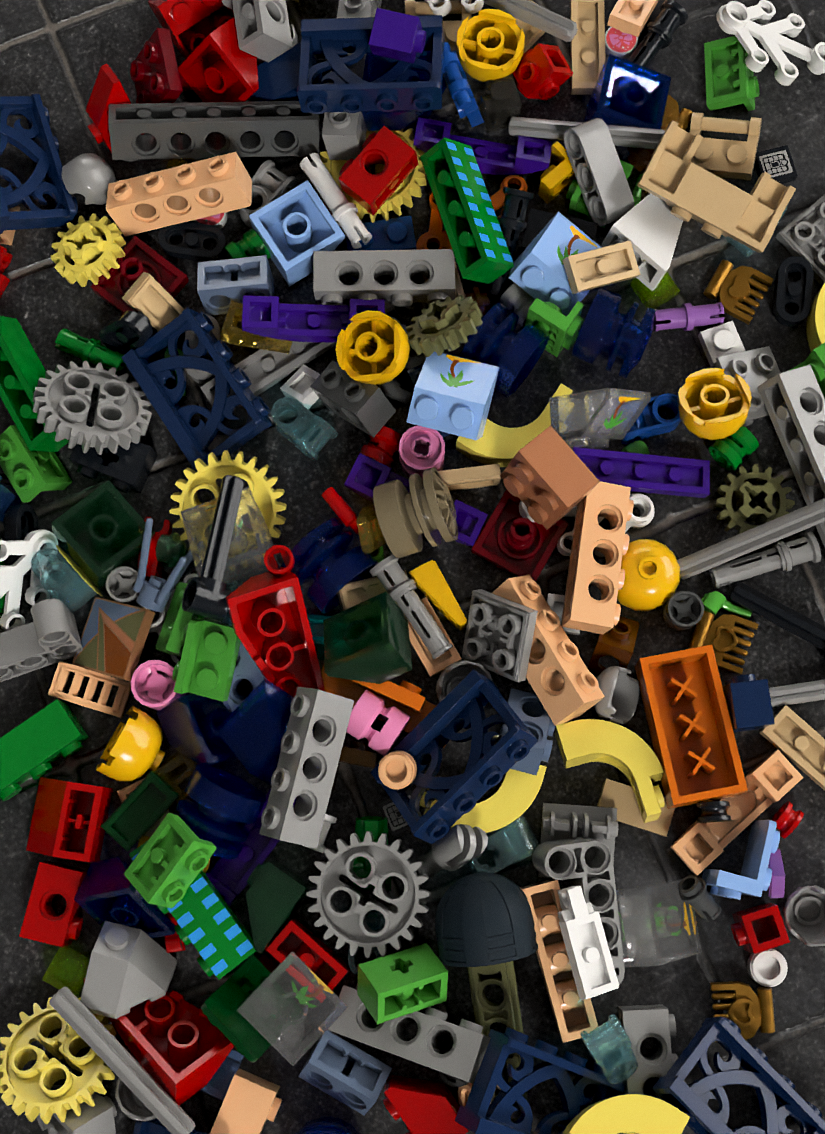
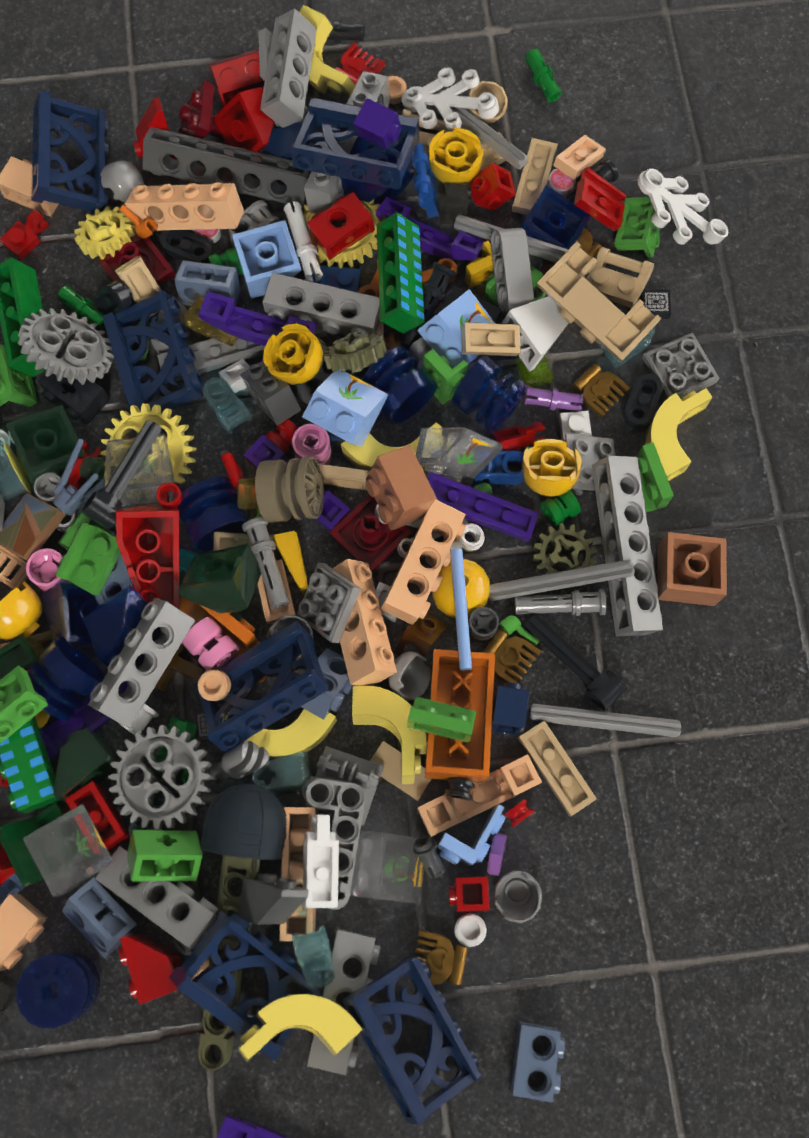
camera: 10 degrees right, 5 degrees down
(134, 233) = (143, 228): none -> orange hand
(540, 1001) = (270, 899): none -> dark grey slope
(658, 603) = (461, 609): none -> light blue bar
(659, 375) = (517, 437): none -> red plate
(676, 54) = (600, 199): none -> red plate
(678, 740) = (441, 719): none -> bright green bracket

